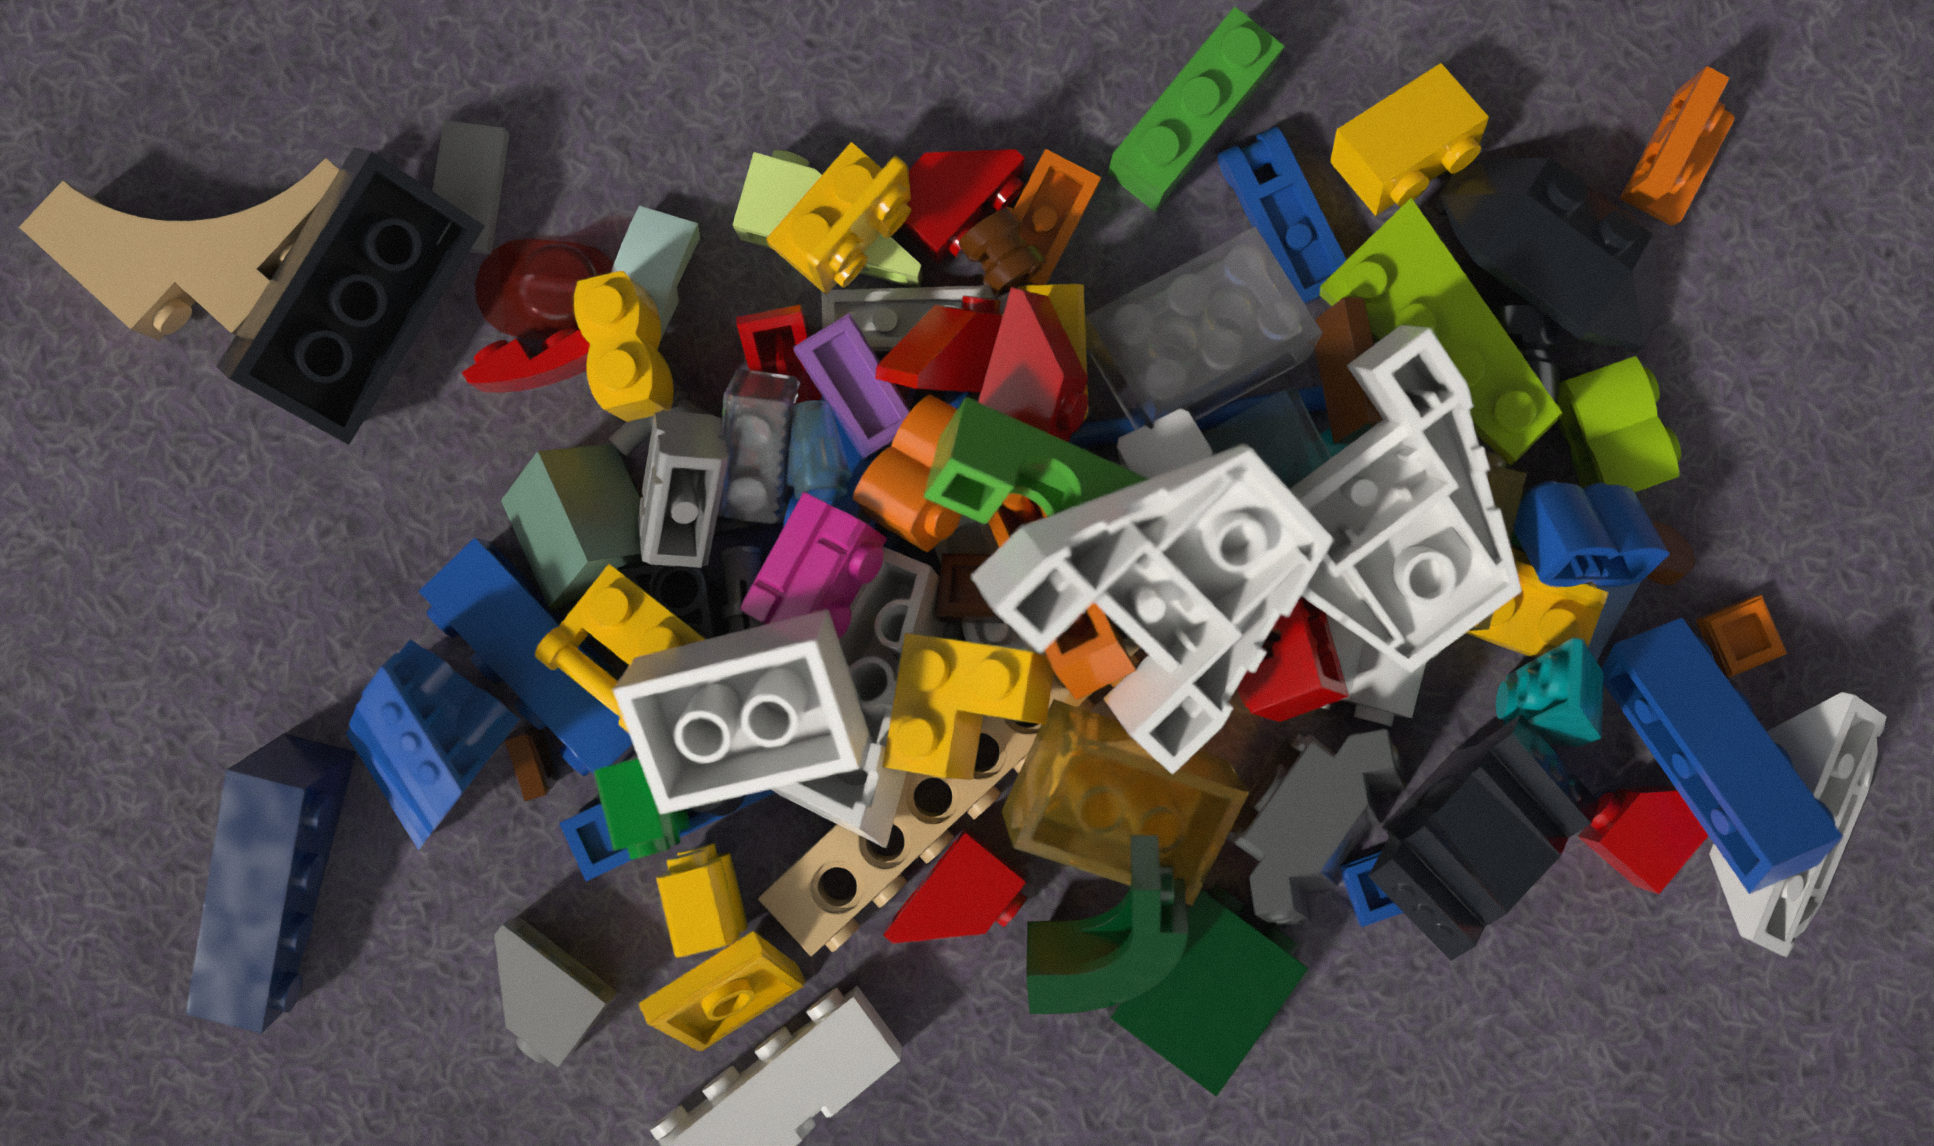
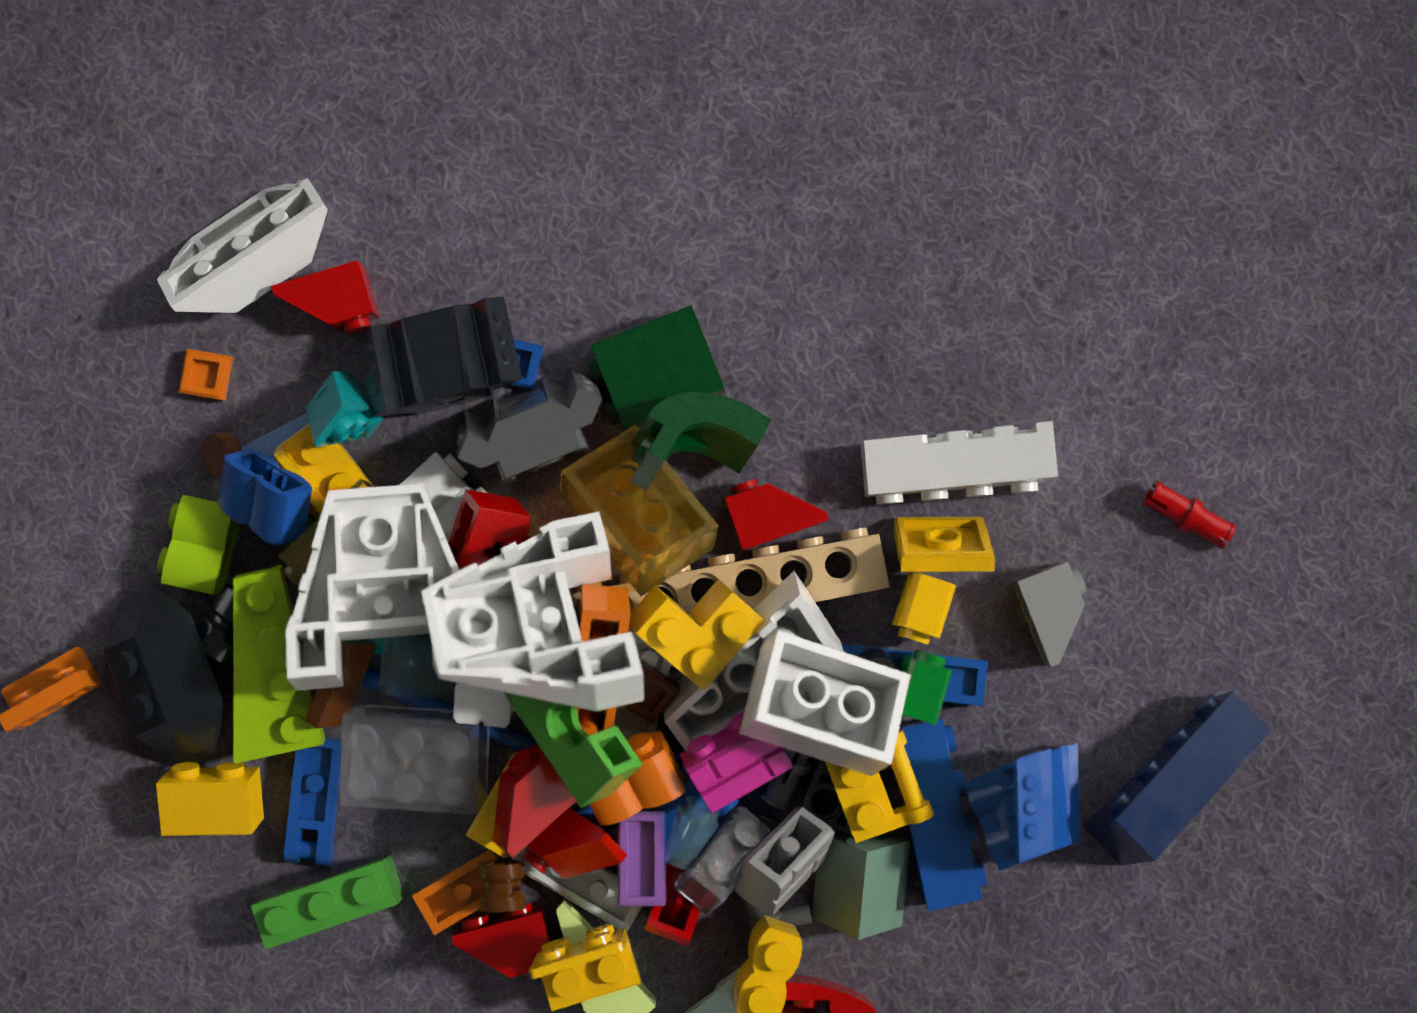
camera: 145 degrees left, 0 degrees up
(531, 761) = (976, 753): reddish brown tile -> none
(1719, 756) = (272, 322): blue brick -> none

